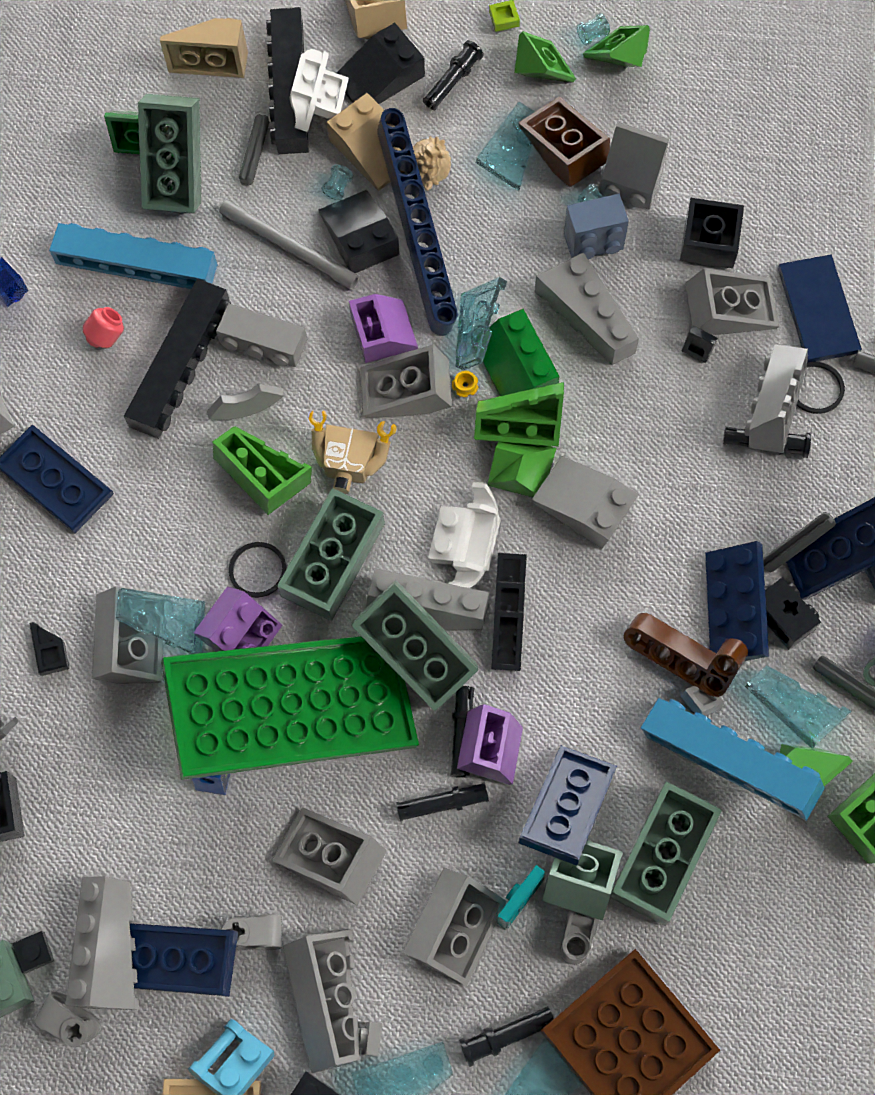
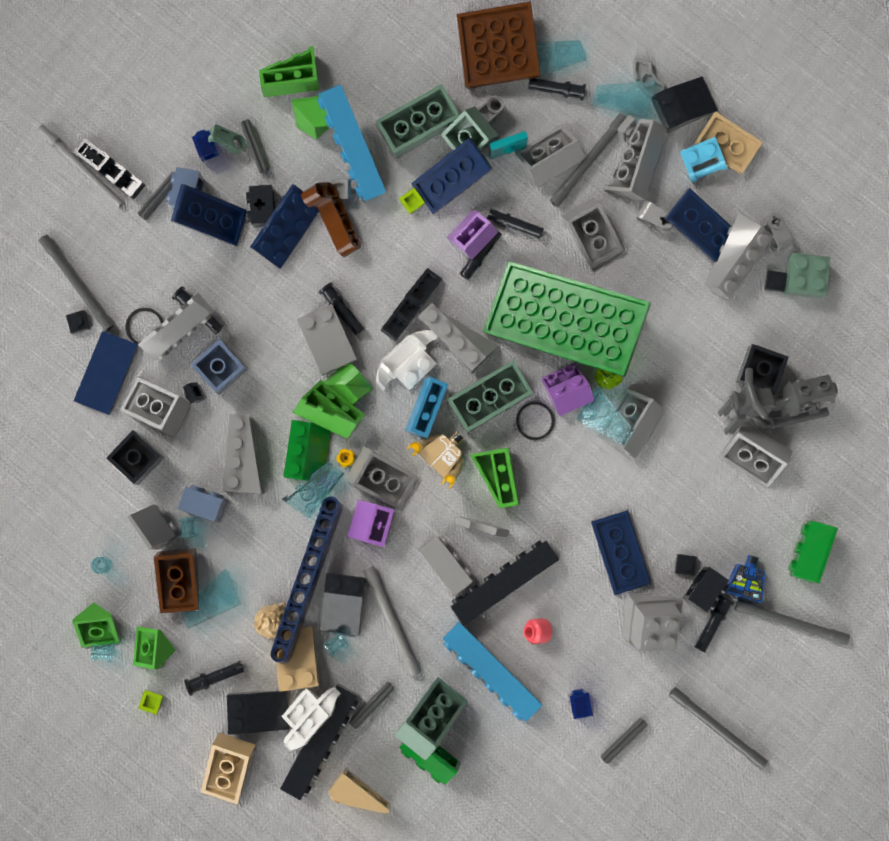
camera: 150 degrees left, 15 degrees up
(49, 651) = (679, 445): black tile -> none
(404, 493) = (426, 407): none -> dark azure brick
(404, 890) = (564, 190): none -> dark grey piece
(415, 645) = (478, 309): sand green brick -> none
(599, 742) = (411, 201): none -> lime plate
(605, 555) = (345, 313): none -> black pin
(664, 113) = (108, 565): none -> clear light blue bush
(692, 387) = (219, 367): none -> sand blue brick
(798, 541) = (228, 236): dark grey axle -> none
(800, 710) = (293, 151): clear light blue wing -> none

